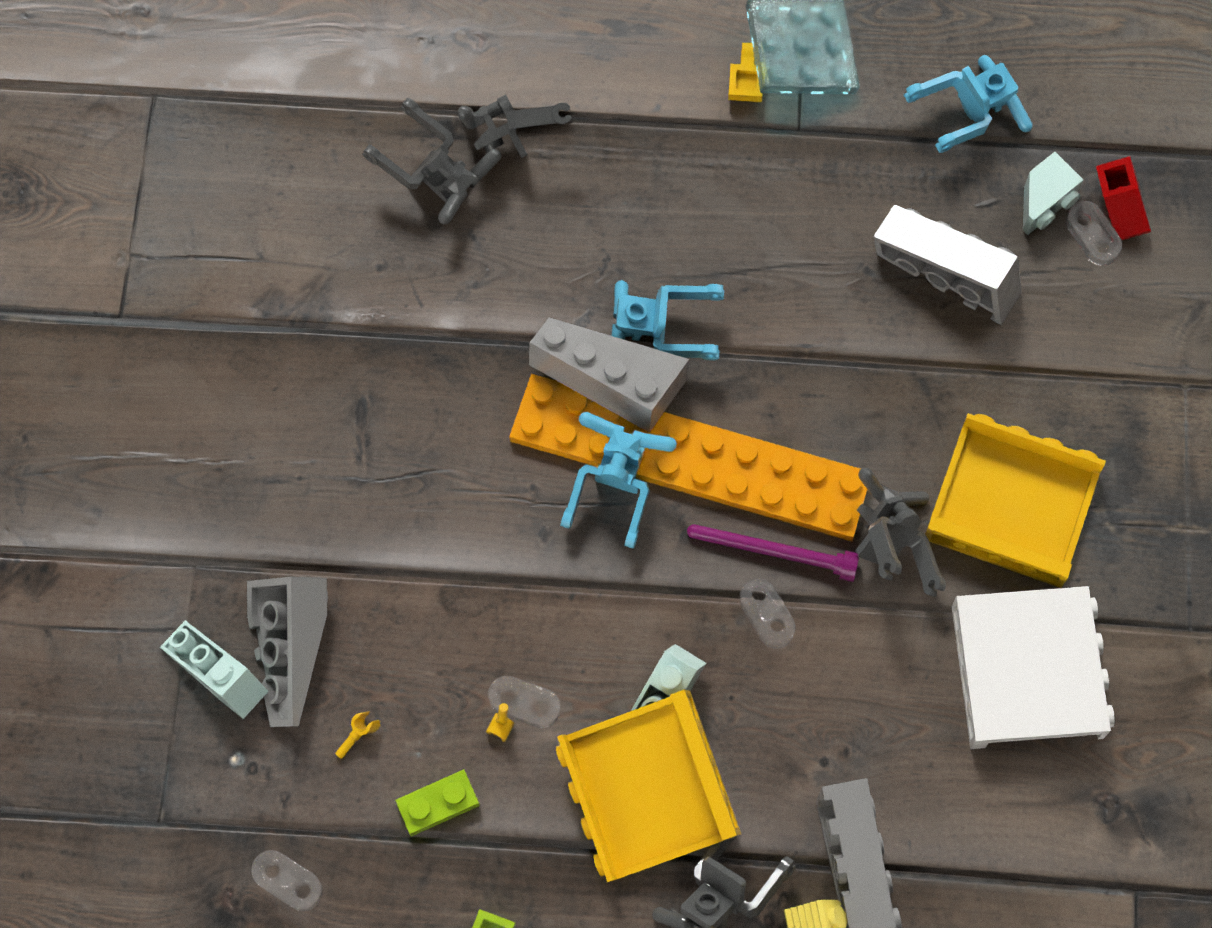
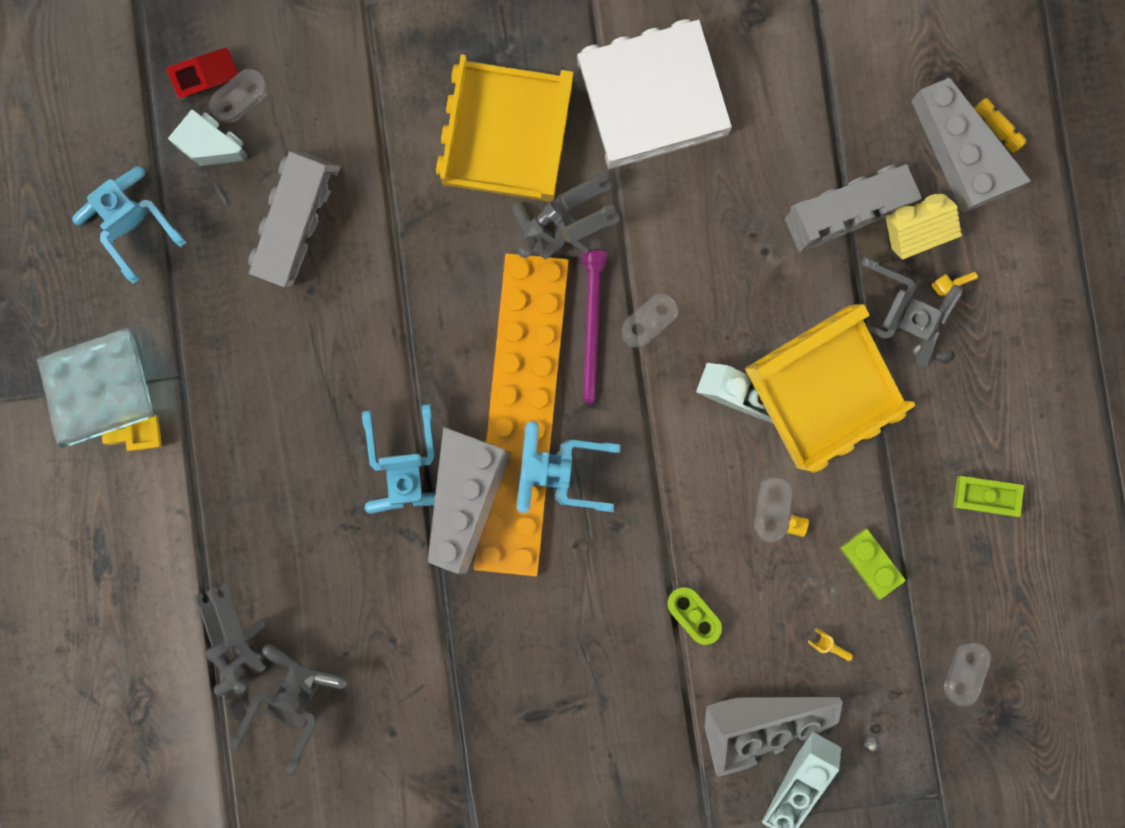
camera: 105 degrees left, 15 degrees up
(425, 590) = (694, 615): none -> lime plate

